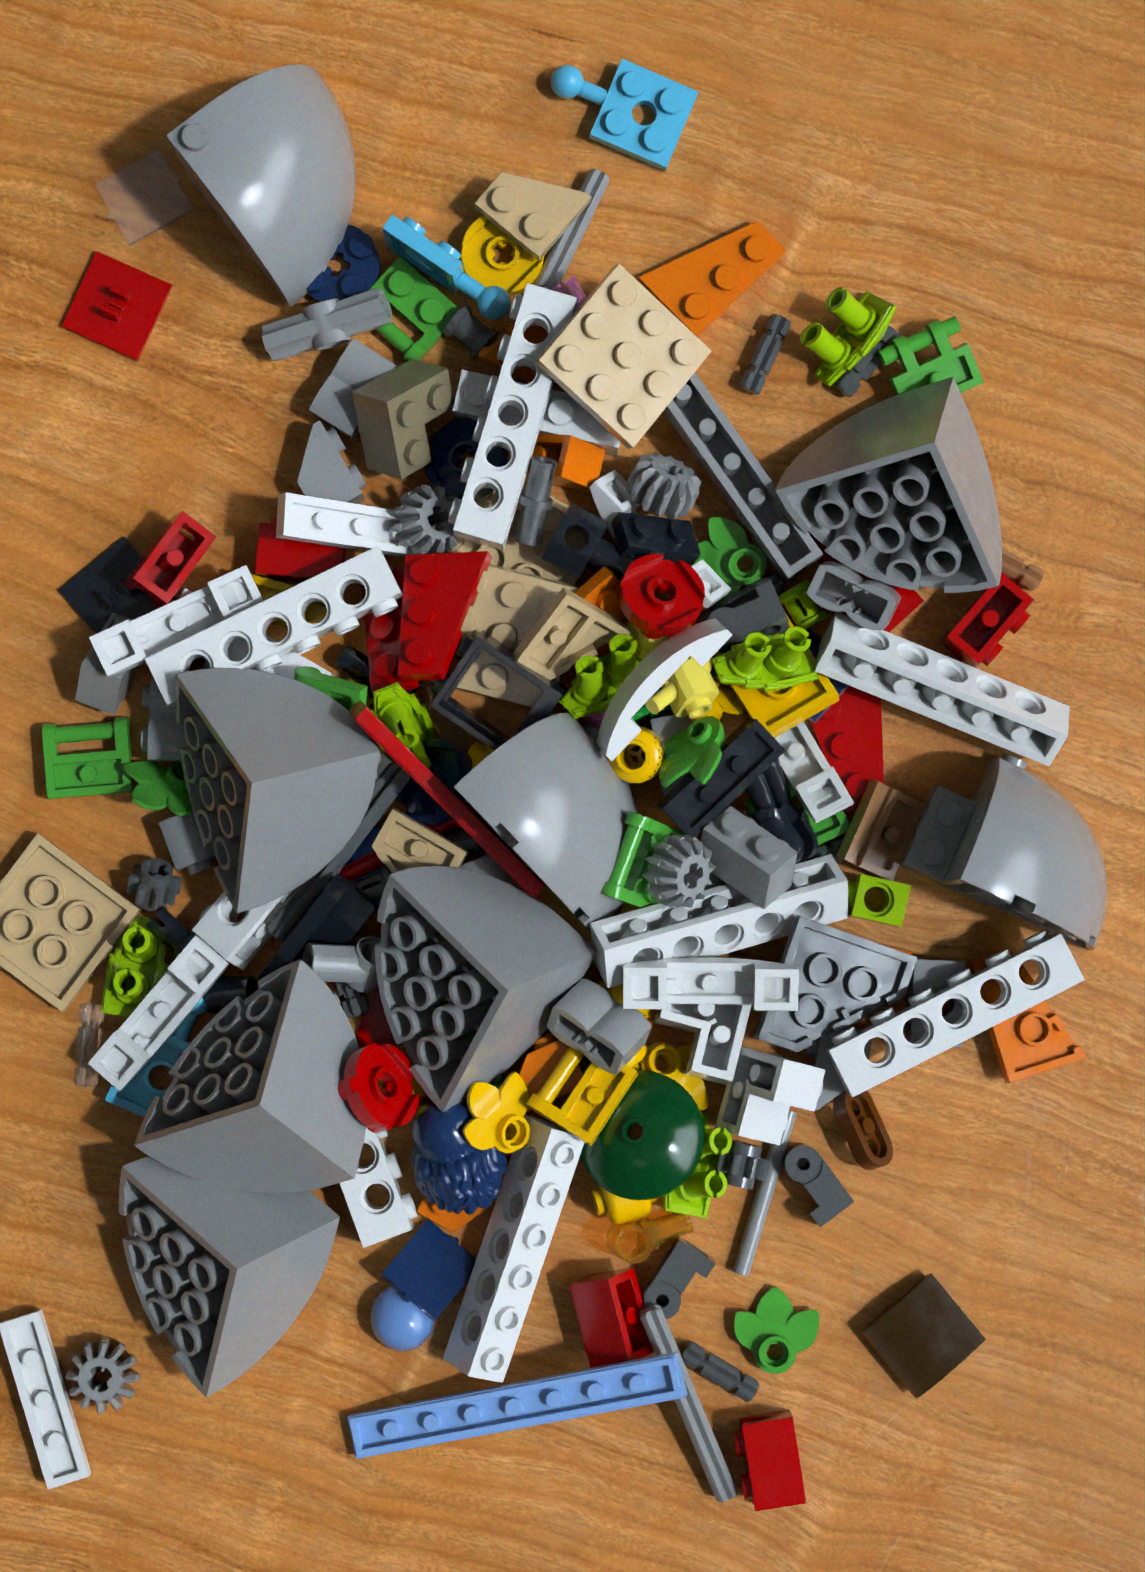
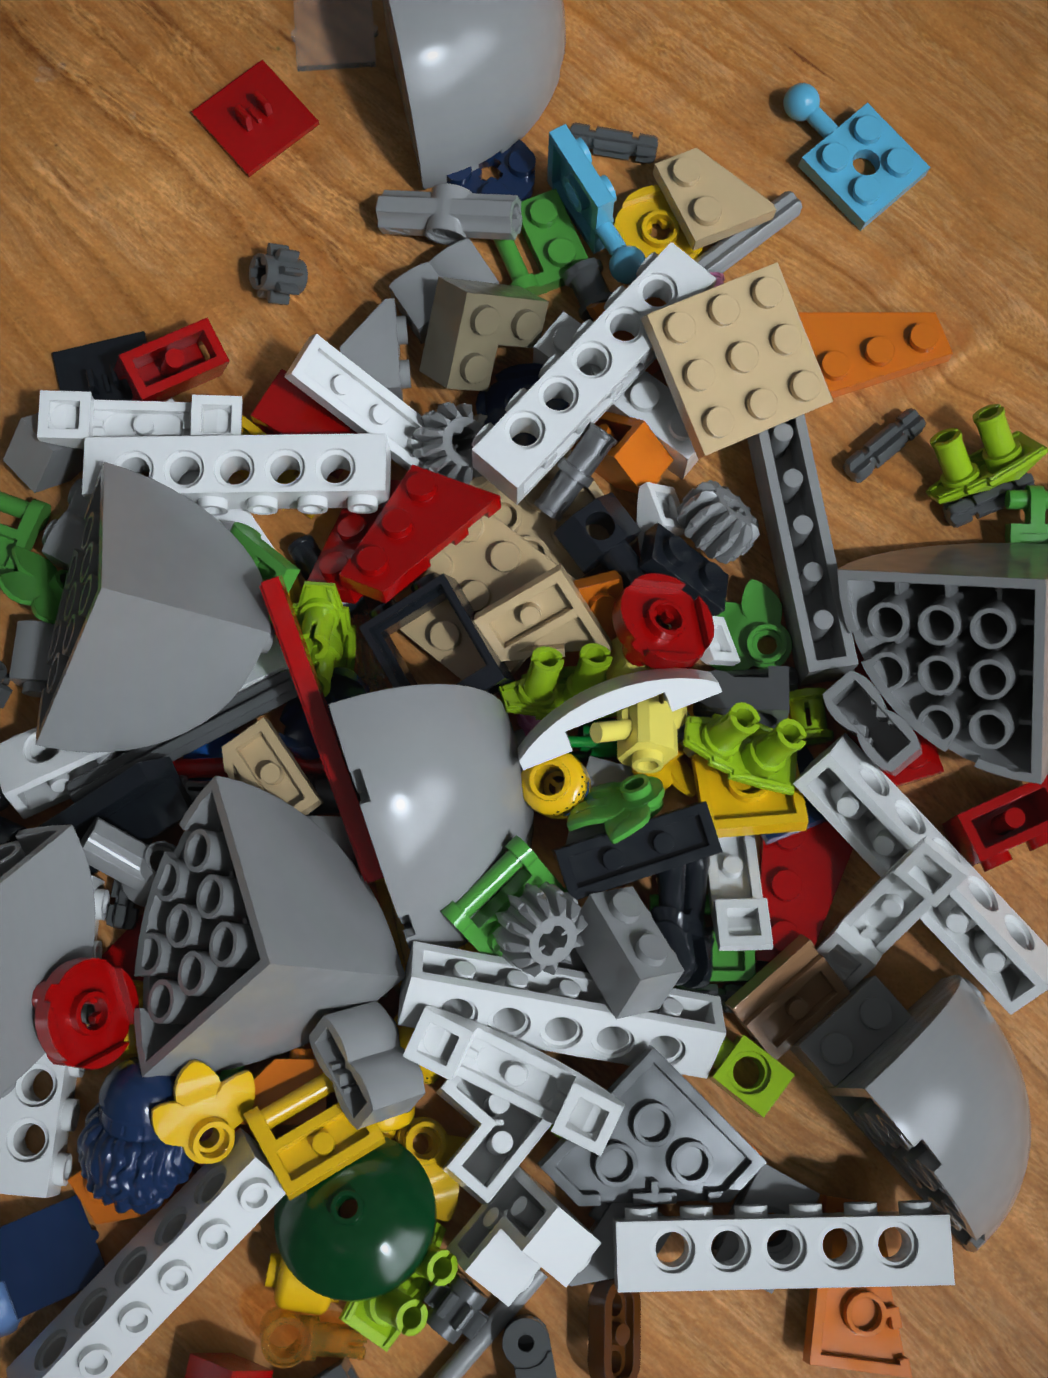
camera: 30 degrees right, 10 degrees down
(212, 440) = (278, 274): none -> dark grey gear
(427, 190) = (617, 142): none -> dark grey axle
(926, 734) = (890, 909): none -> white slope

